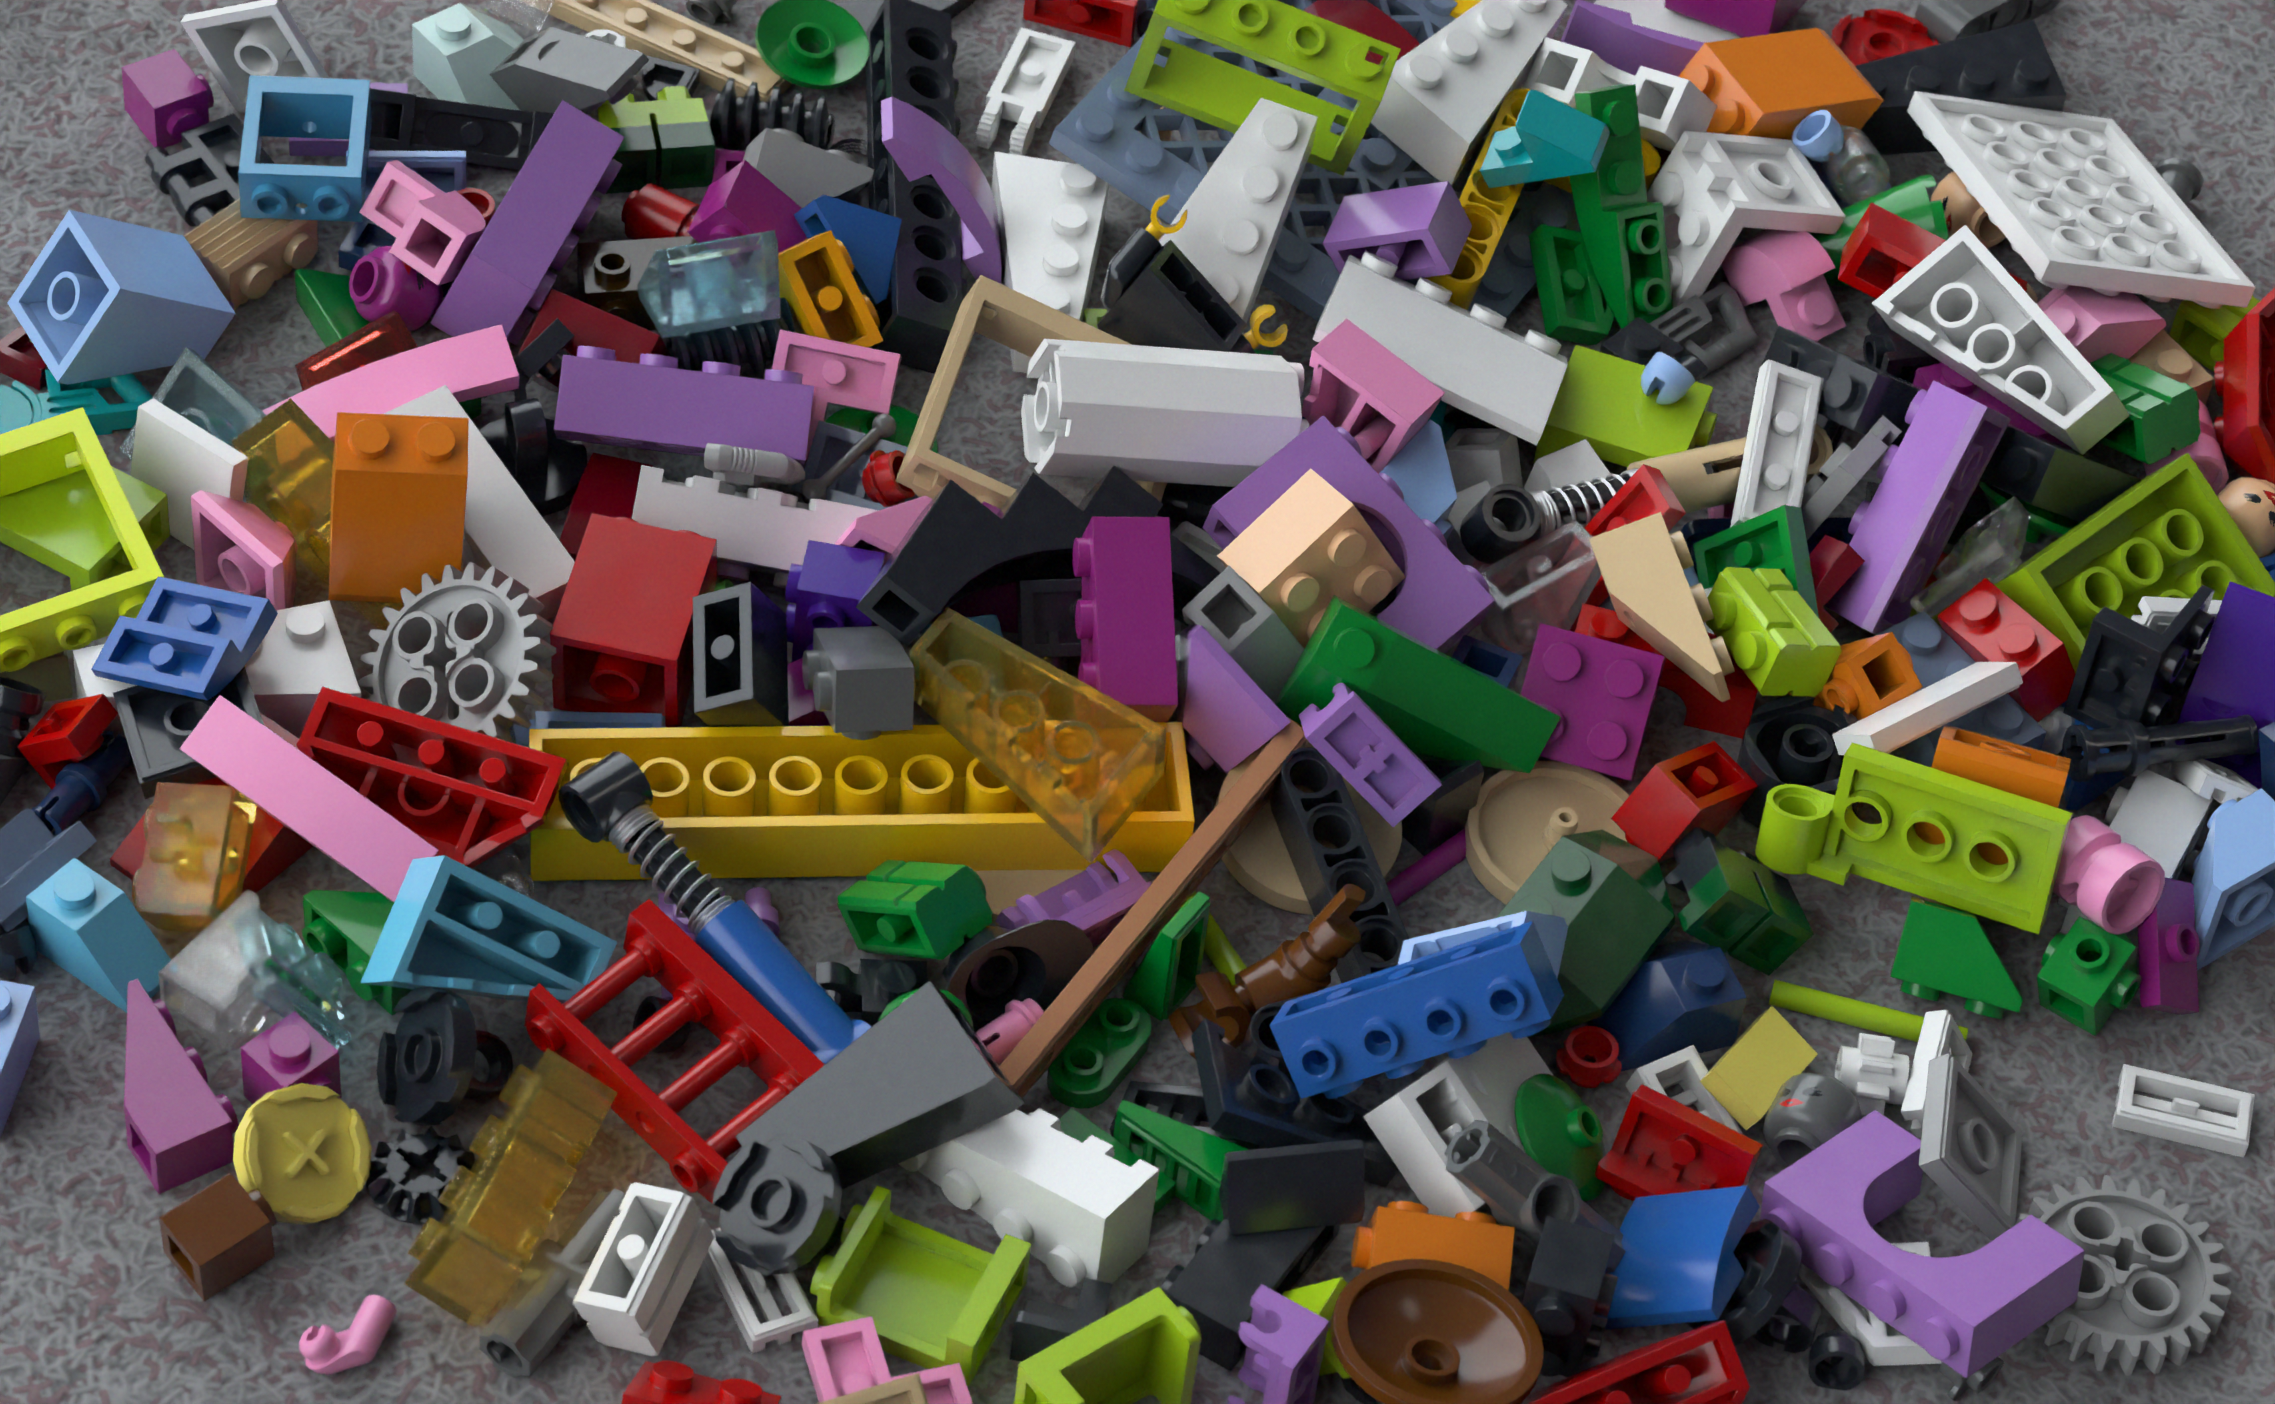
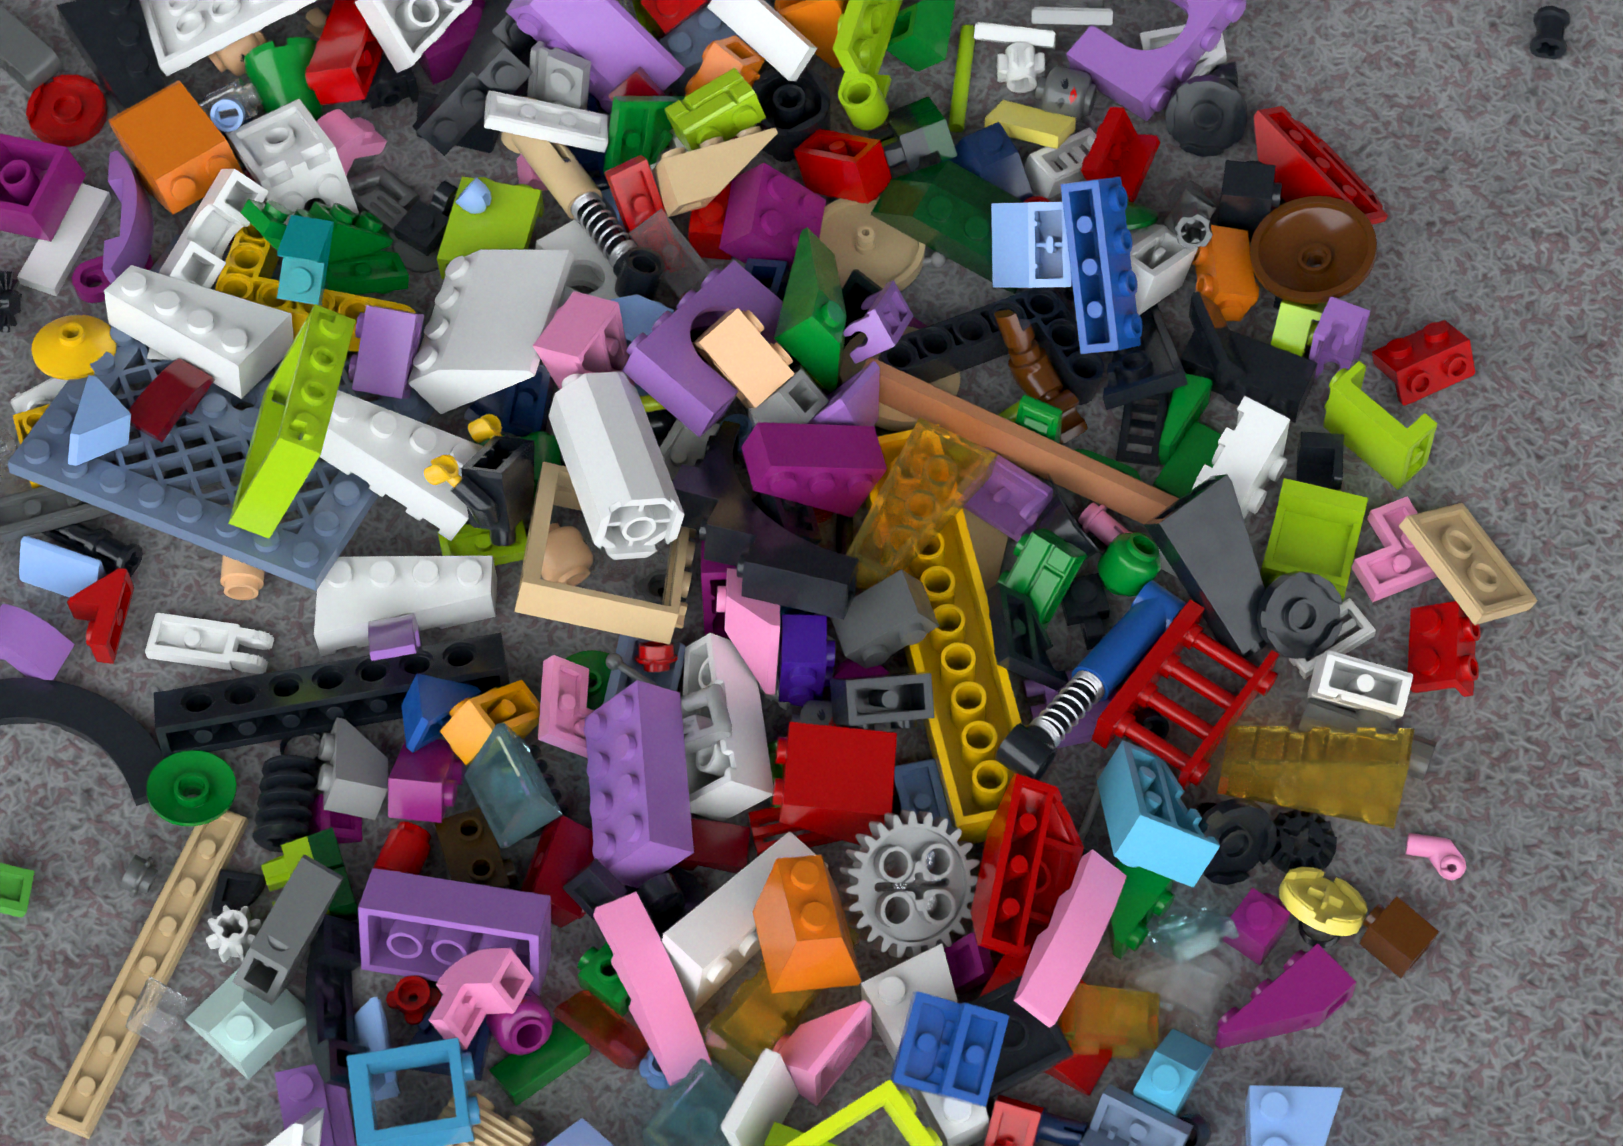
camera: 90 degrees left, 15 degrees up
(810, 849) = (1020, 638): none -> black wing
(1680, 1257) = (1195, 146): blue slope -> none

